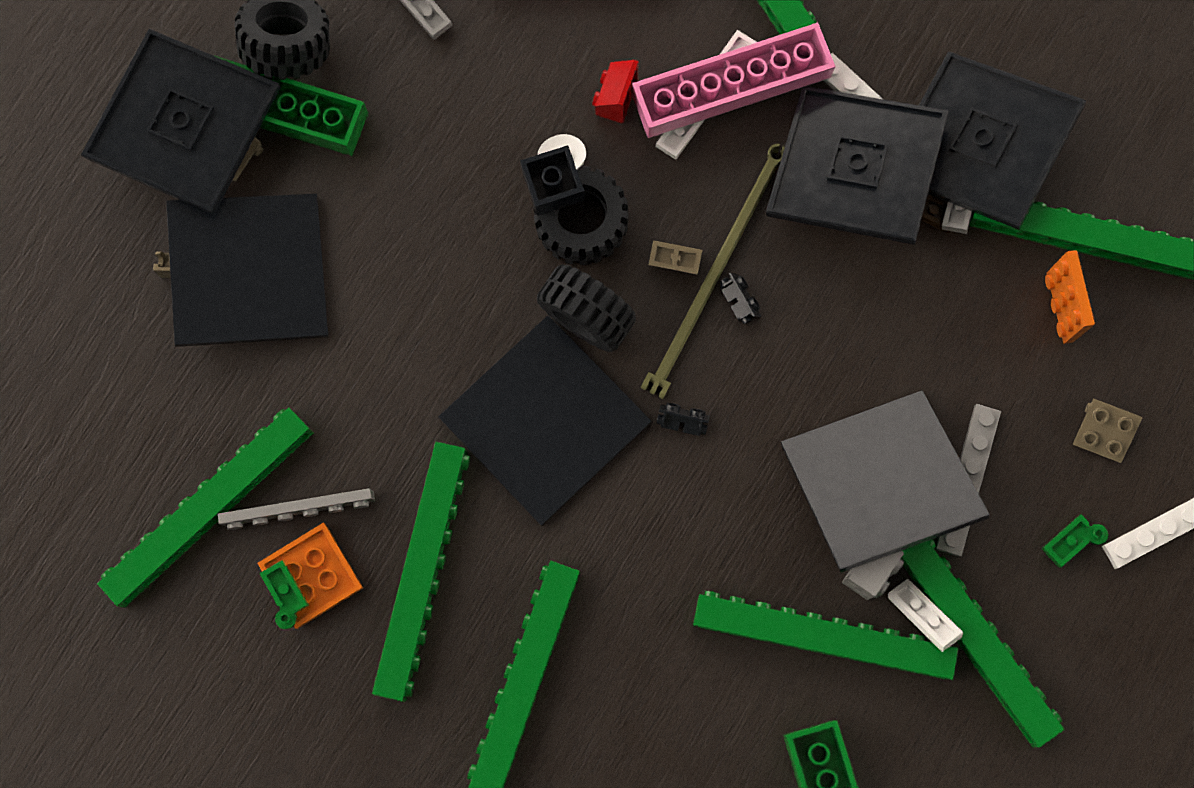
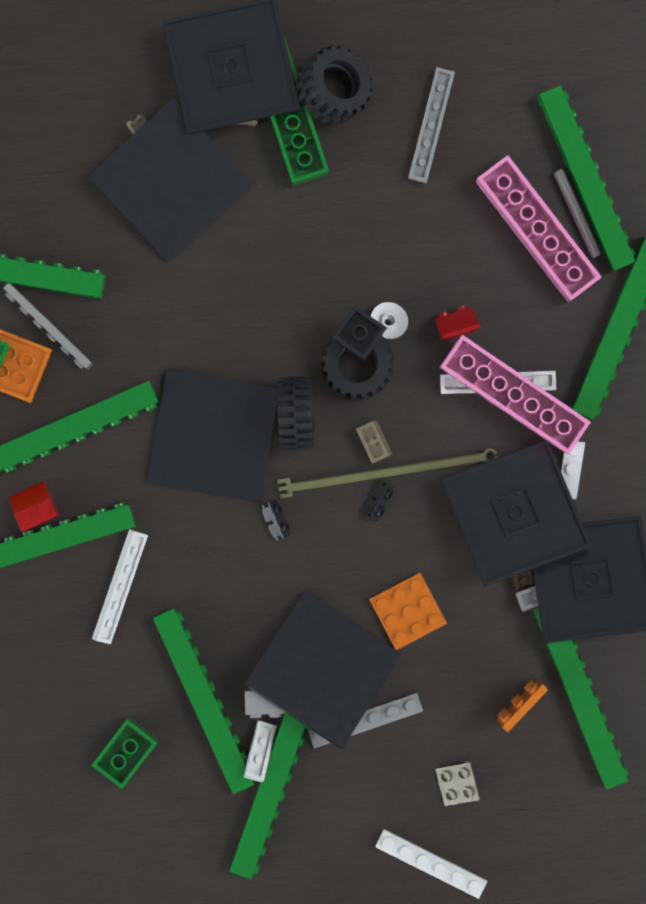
camera: 50 degrees right, 10 degrees up
(476, 667) = (33, 507): none -> red slope
(632, 638) = (119, 587): none -> white plate
(880, 352) = (408, 611): none -> orange plate
(1073, 539) = (373, 808): green hinge -> none

